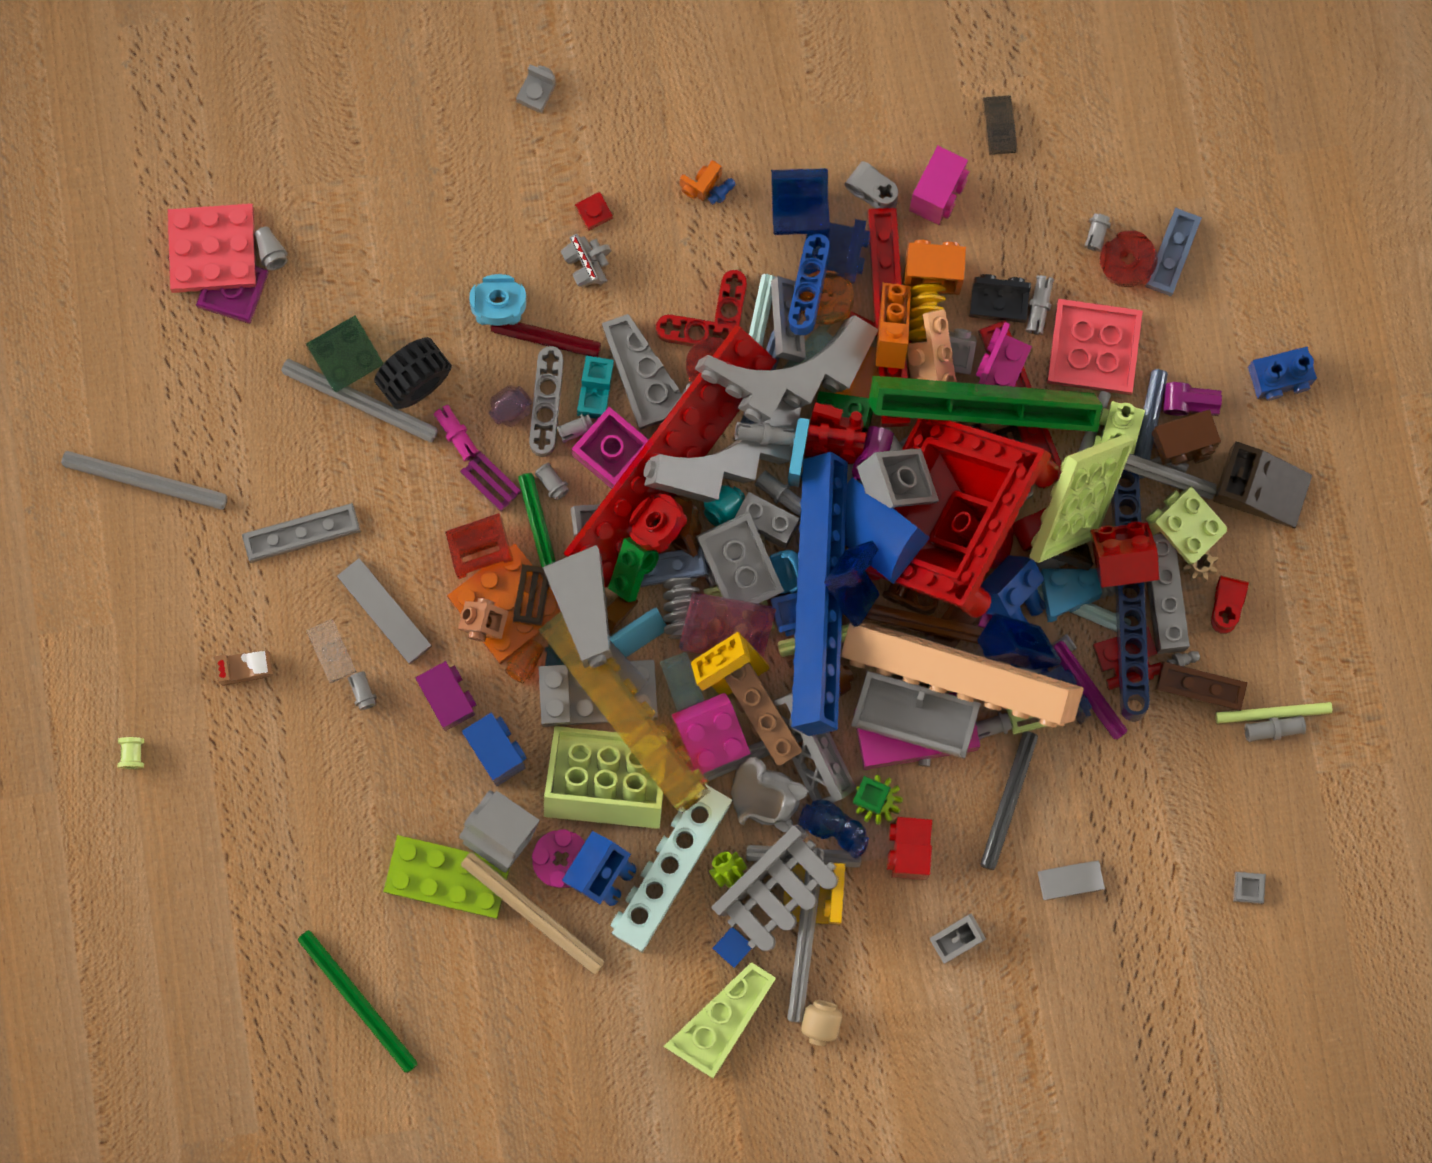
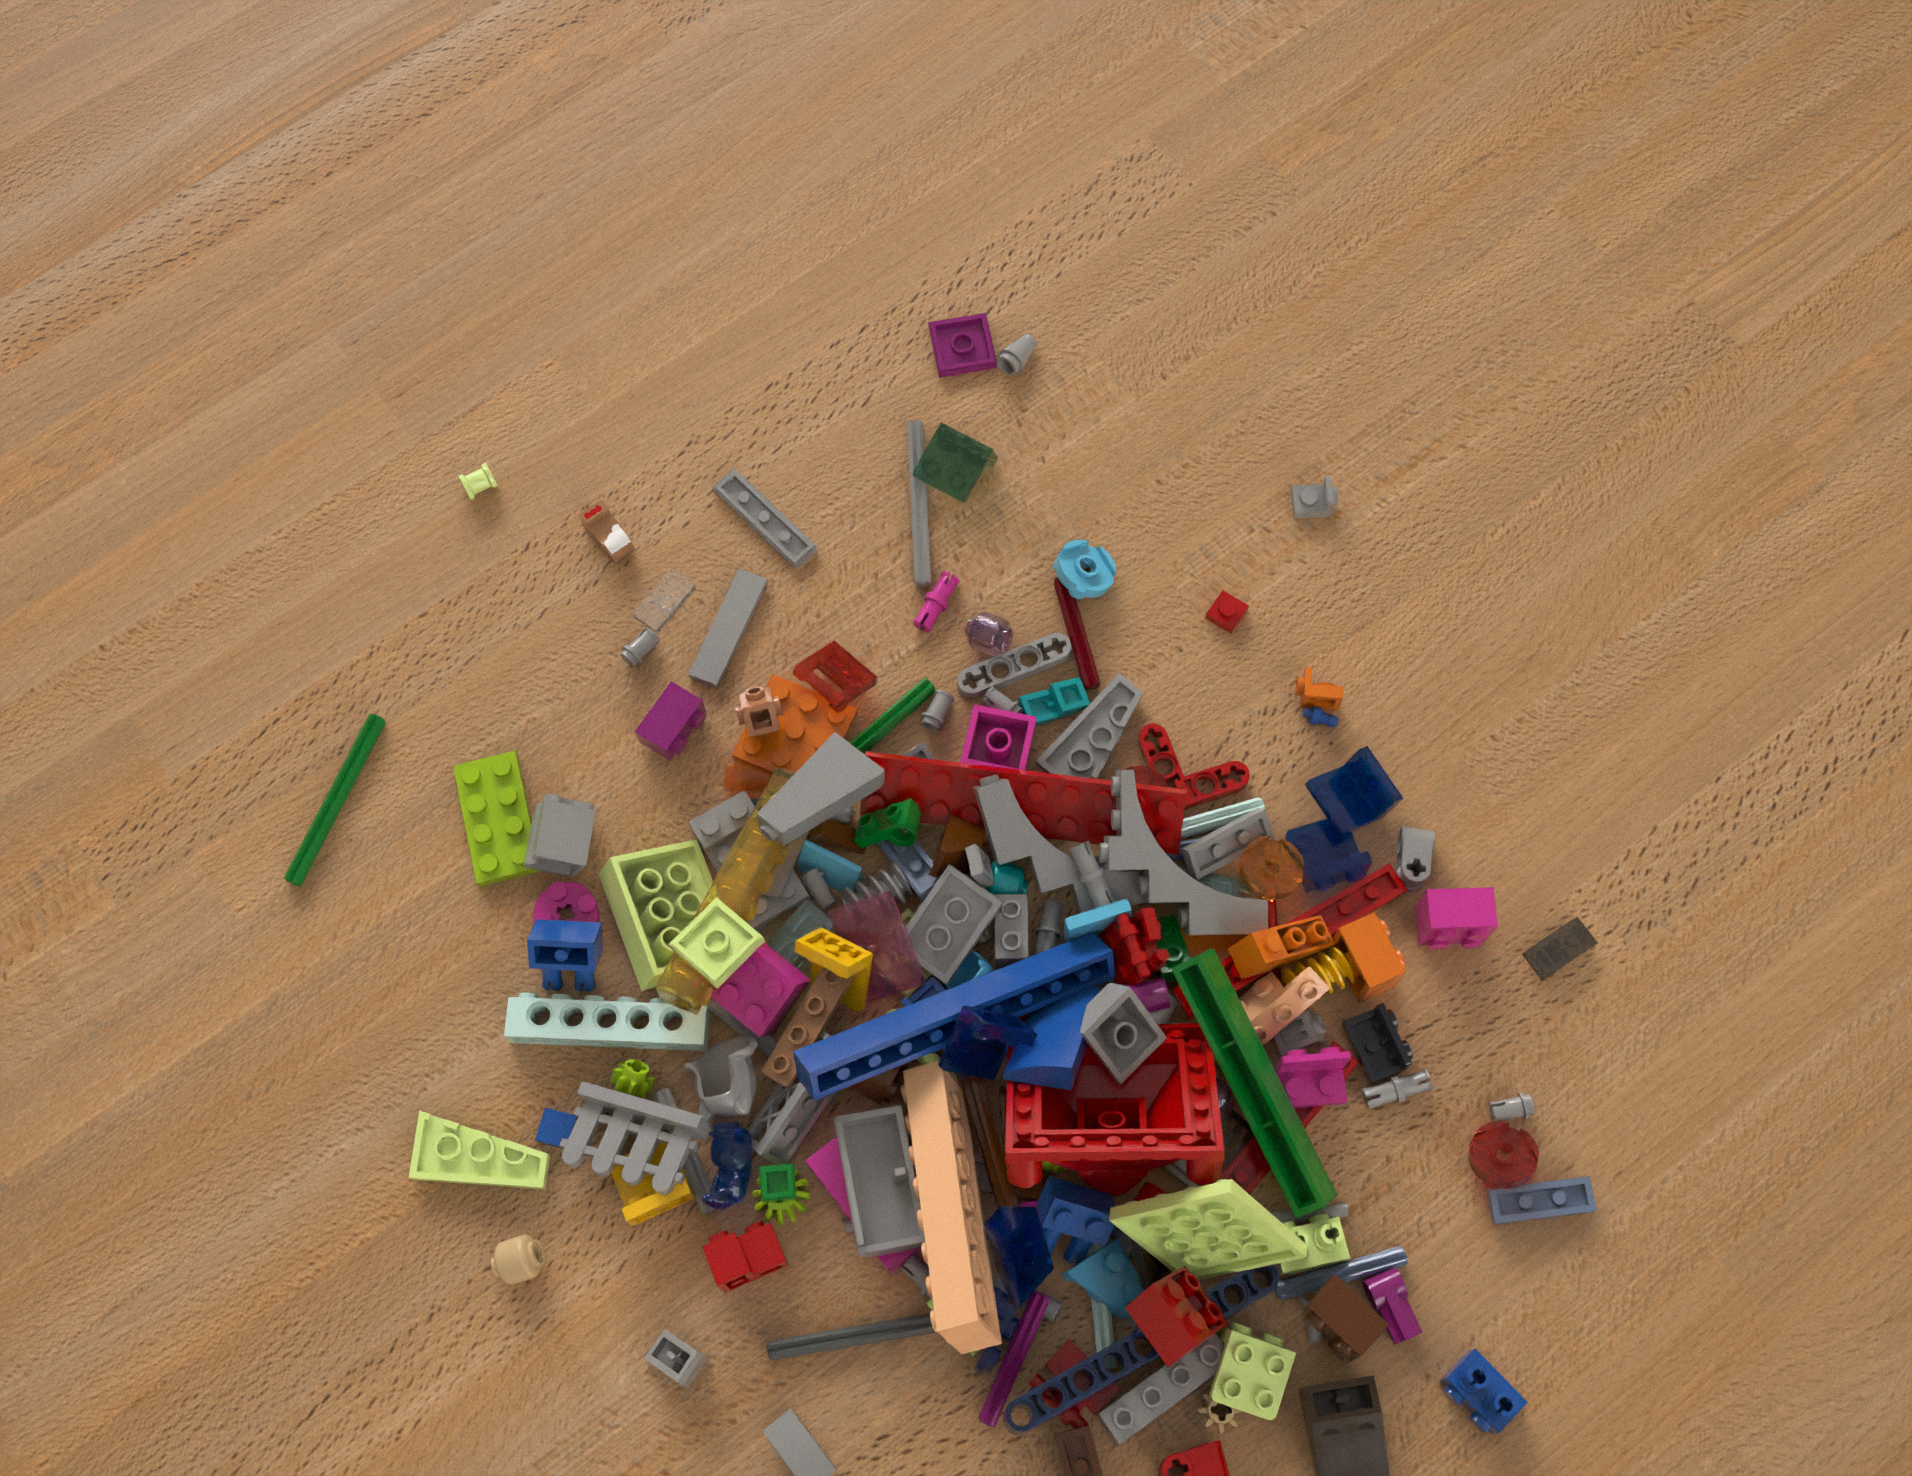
camera: 65 degrees right, 10 degrees down
(144, 480) = (741, 365): light grey axle -> none
(212, 248) = (989, 308): coral plate -> none
(412, 373) = (966, 527): black tyre -> none
(473, 464) = (913, 633): magenta tile -> none
(493, 748) = (639, 790): blue brick -> none
(532, 913) = (495, 913): tan axle -> none
(543, 596) = (800, 739): dark brown tile -> none
(588, 254) = (1176, 631): light grey hips -> none
(650, 650) = (819, 888): none -> light grey pin
(659, 536) = (953, 828): red plate -> none
(667, 744) = (716, 942): none -> yellowish green tile
(709, 514) = (980, 866): none -> light grey tile
(803, 955) = (582, 1202): light grey axle -> none
(810, 284) = (1272, 838): blue beam -> none
(1094, 346) = (1388, 1170): coral plate -> none
(1169, 476) = (1294, 1323): light grey axle -> none
(1184, 659) = (1106, 1449): light grey piece -> none

